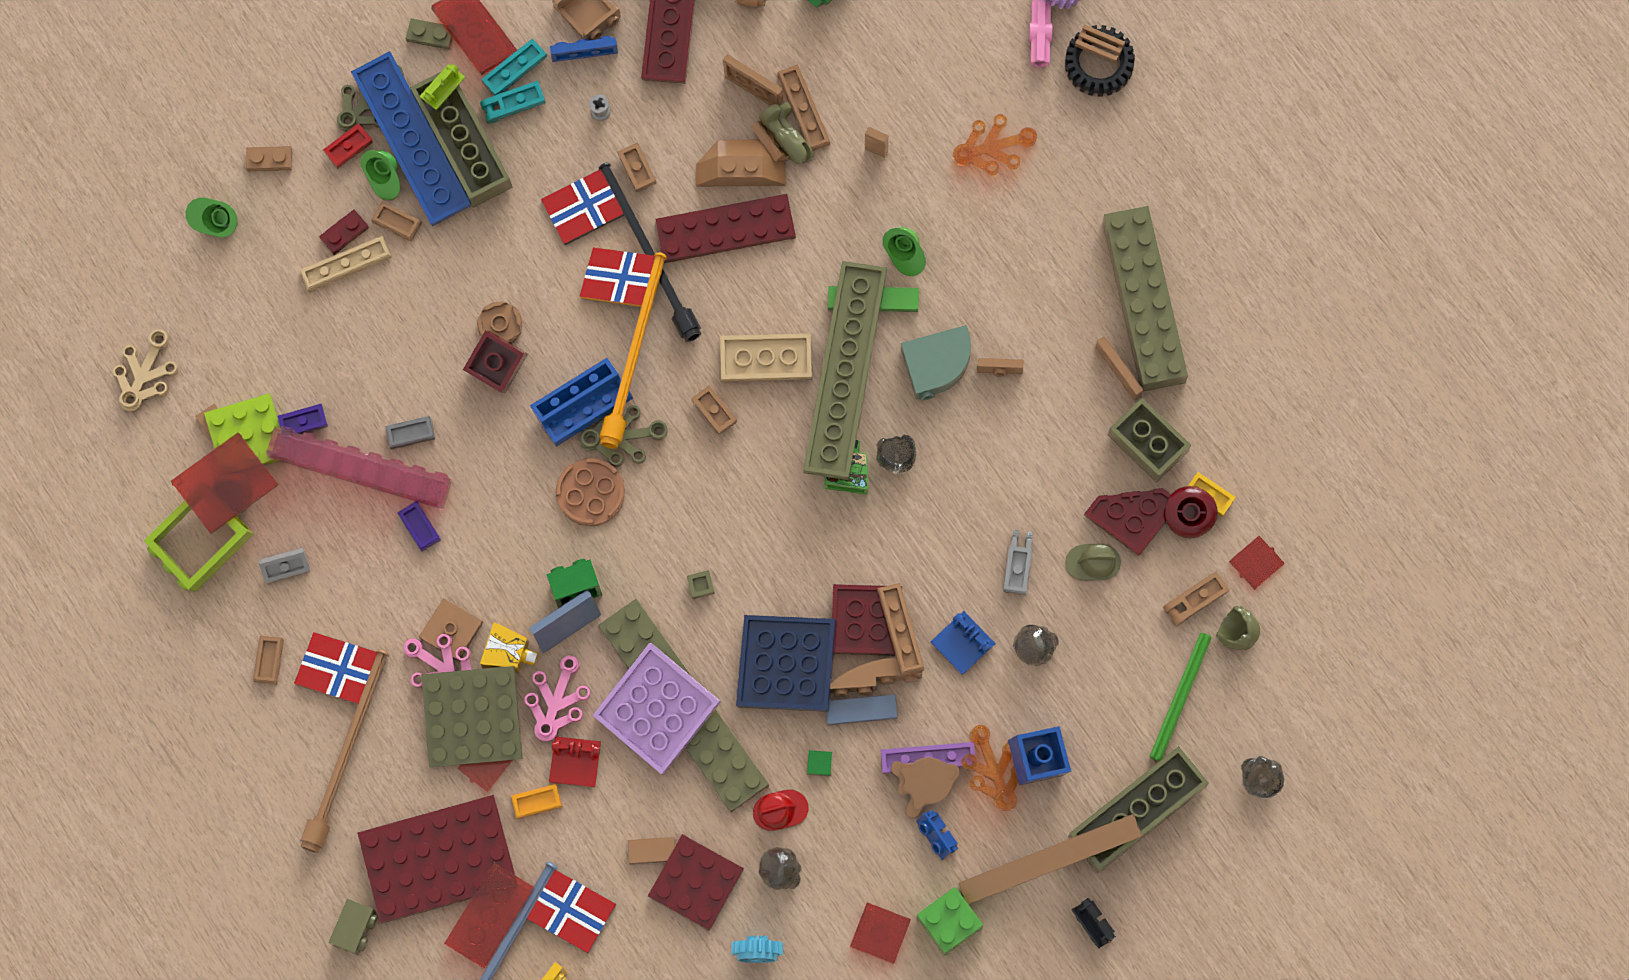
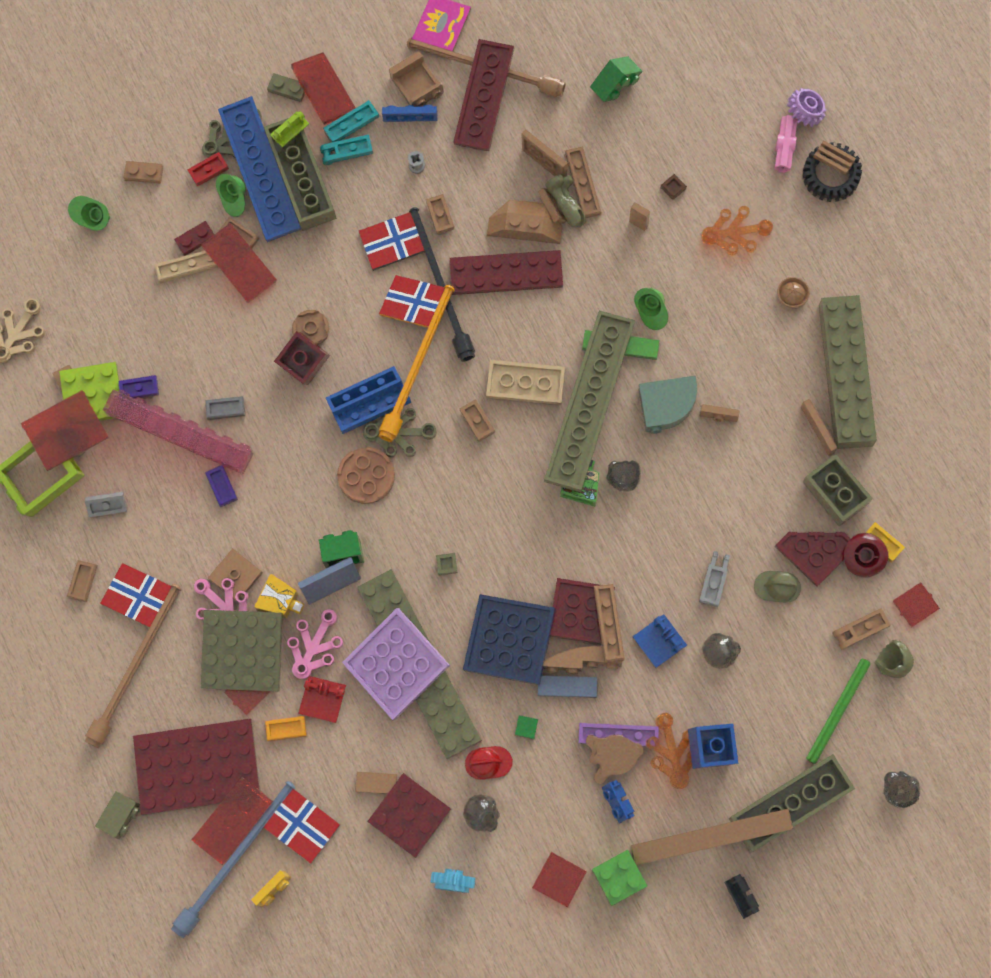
camera: 10 degrees right, 0 degrees up
(402, 255) = (239, 263): none -> clear red tile
(912, 100) = (673, 187): none -> reddish brown tile
(1070, 211) = (793, 292): none -> medium nougat hat

